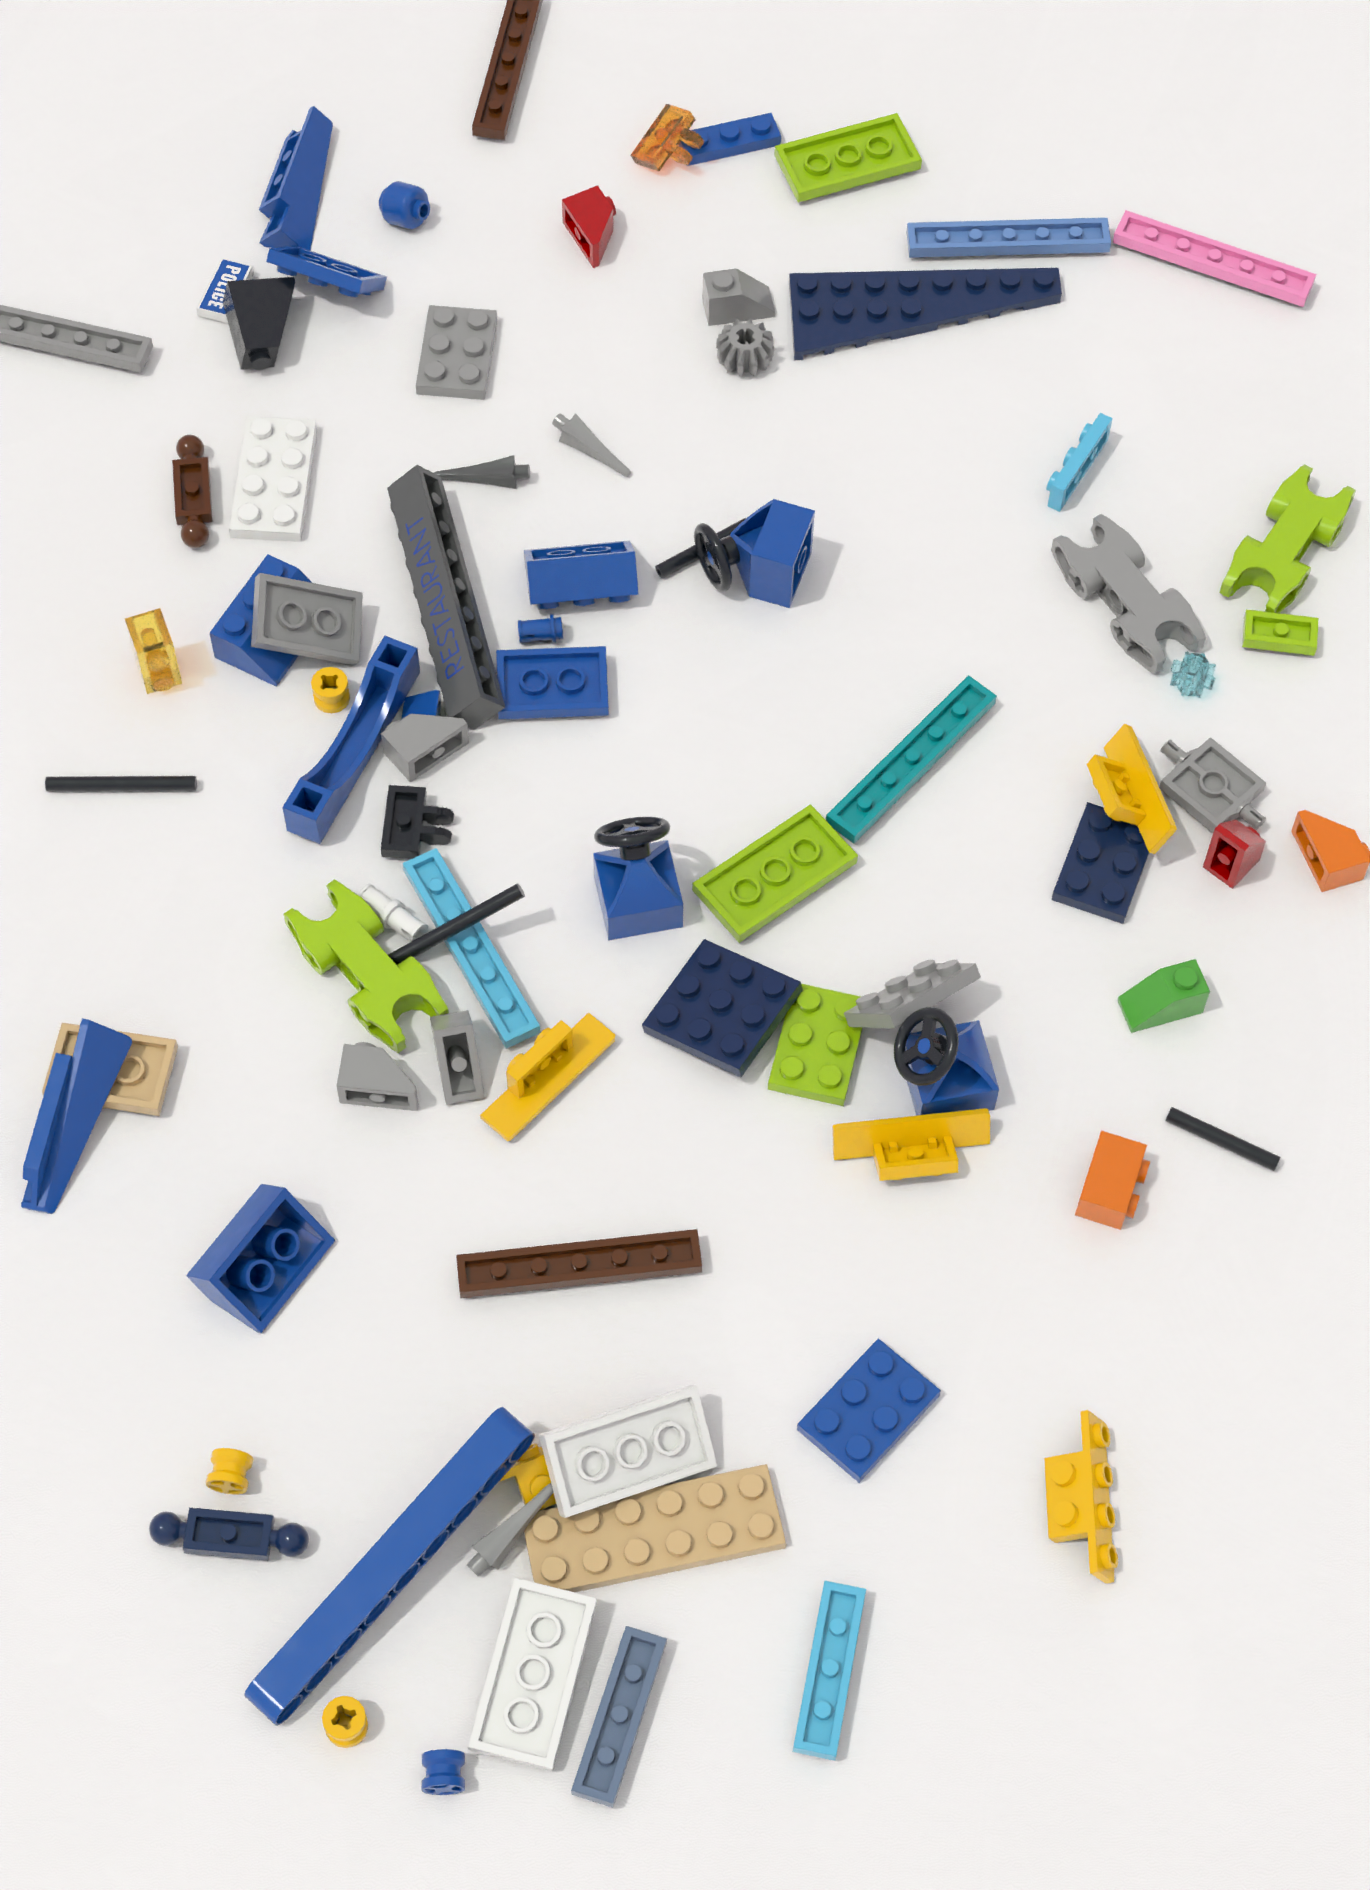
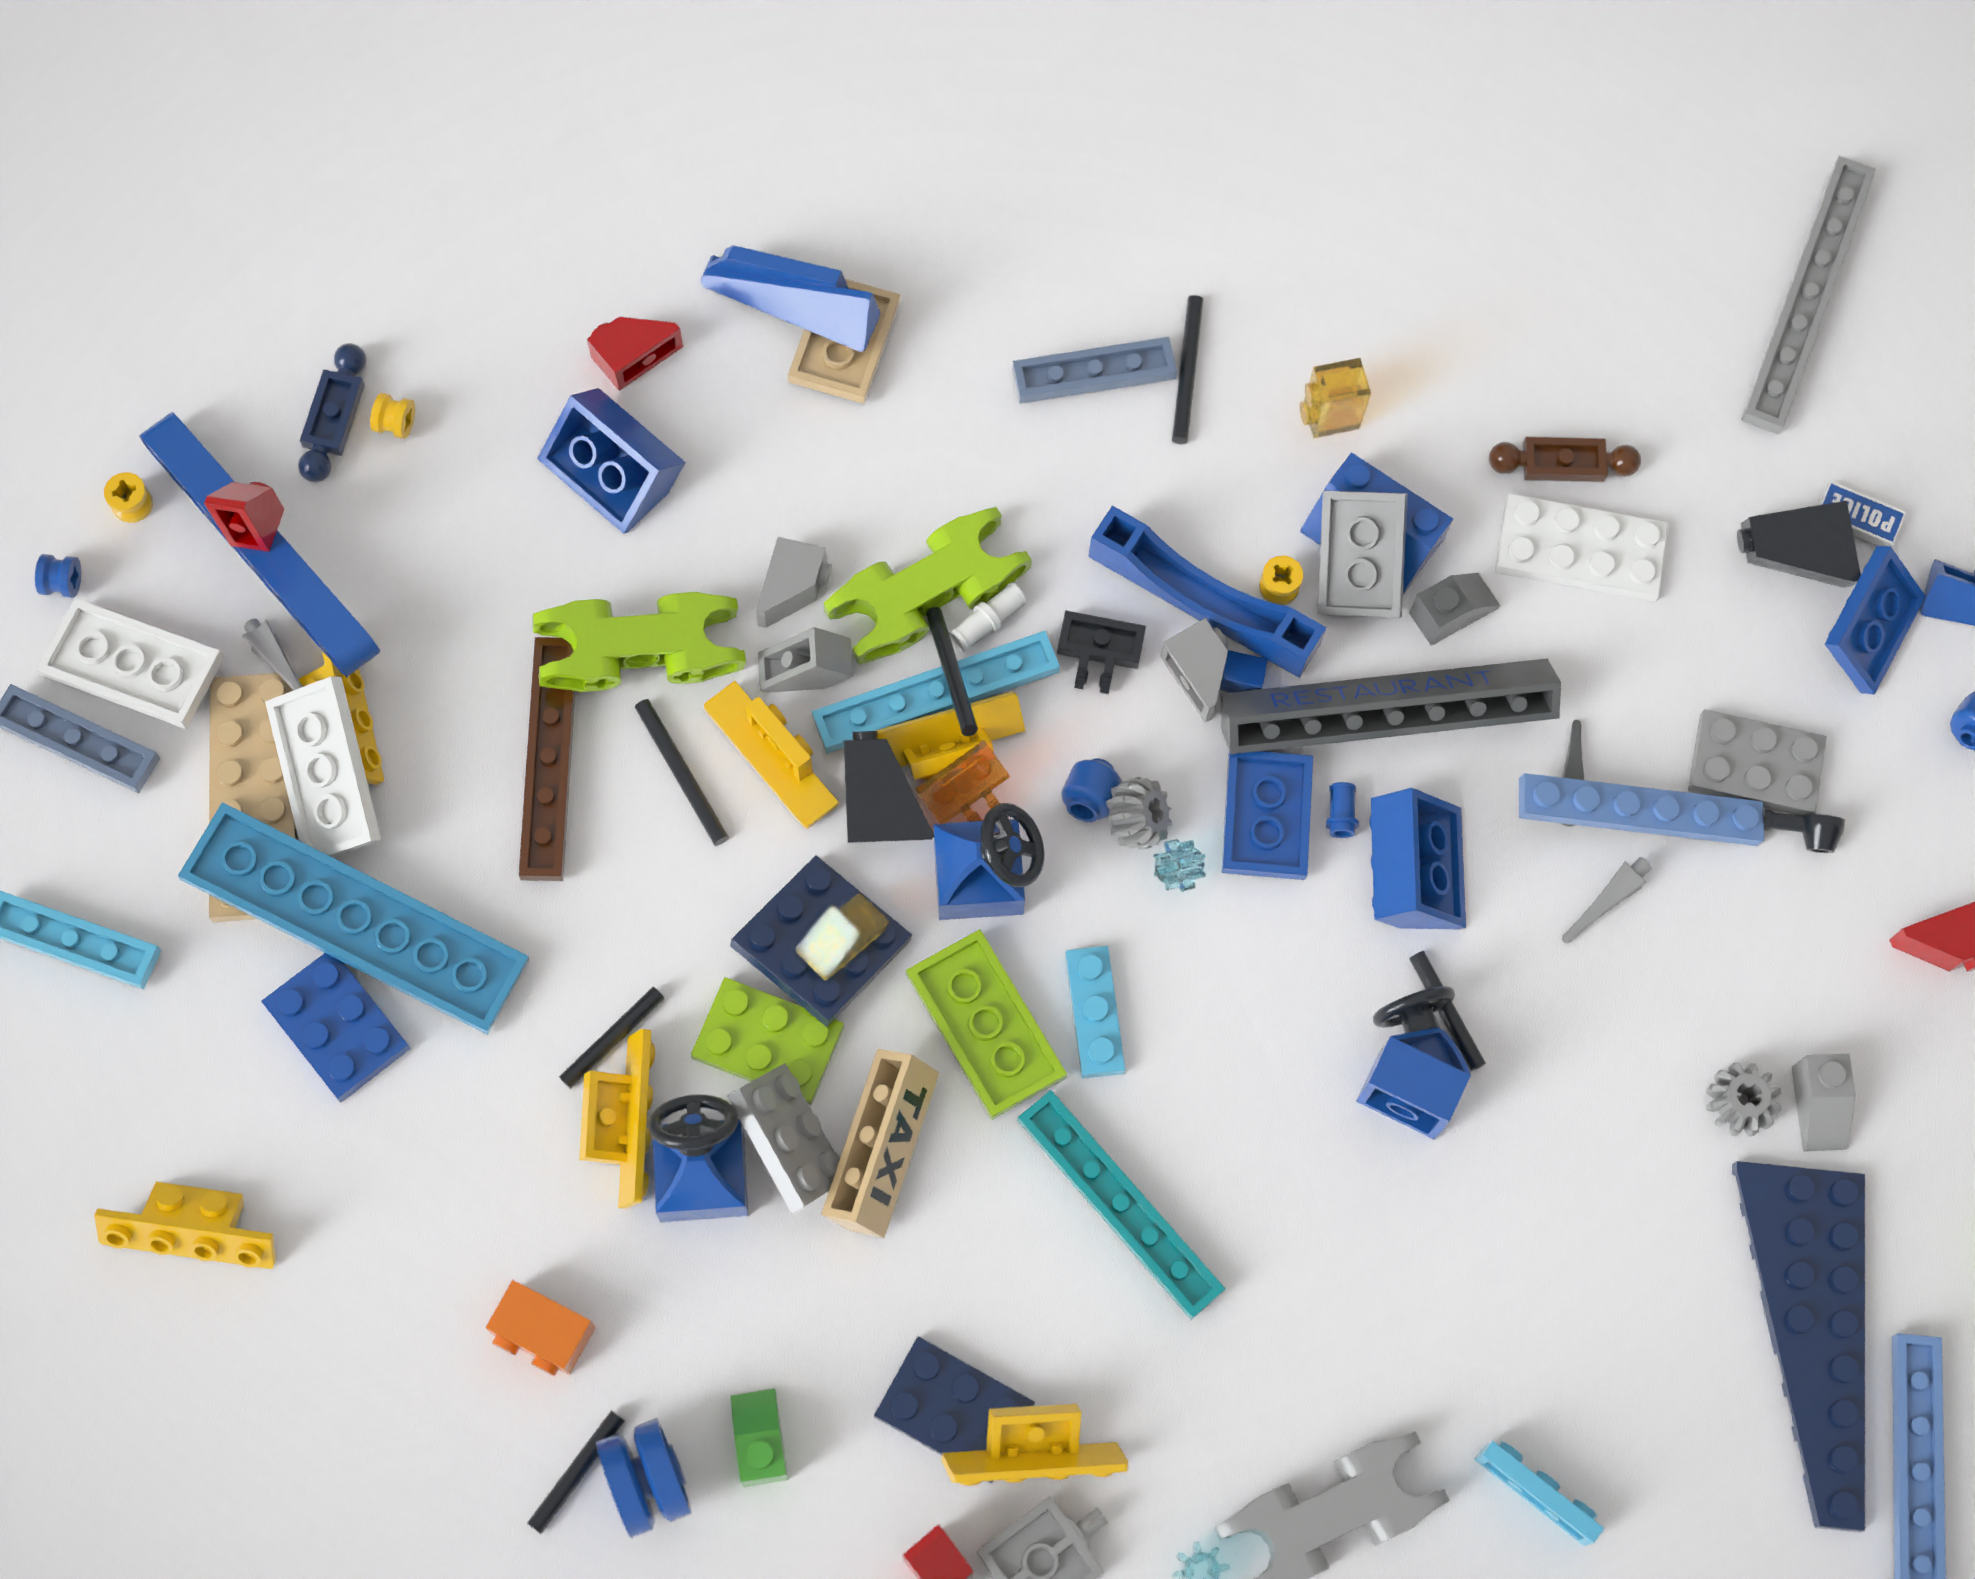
camera: 95 degrees right, 10 degrees up
(130, 855) = (1094, 370): none -> sand blue plate
(136, 1258) = (632, 347): none -> red slope
(343, 562) = (1452, 605): none -> dark grey slope
(376, 1548) = (246, 514): none -> red slope
(463, 1222) = (612, 643): none -> lime piece
(513, 307) = (1819, 831): none -> black bar
(514, 420) = (1640, 809): none -> medium blue plate
(523, 935) = (937, 740): none -> yellow bracket
(550, 813) = (1089, 789): none -> blue head
(564, 901) = (963, 784): none -> clear orange hinge
(570, 769) = (1139, 813): none -> light grey gear
(574, 1151) = (681, 772): none -> black bar
(582, 972) = (878, 794): none -> black slope
(610, 739) = (1179, 865): none -> clear light blue gear
(723, 977) = (841, 935): none -> slope
(748, 796) = (1094, 1012): none -> medium azure plate
(767, 1404) = (354, 918): none -> dark azure plate
(838, 1171) = (611, 1037): none -> black piece
(899, 931) = (880, 1143): none -> tan brick
(1222, 1066) = (650, 1475): none -> blue wheel

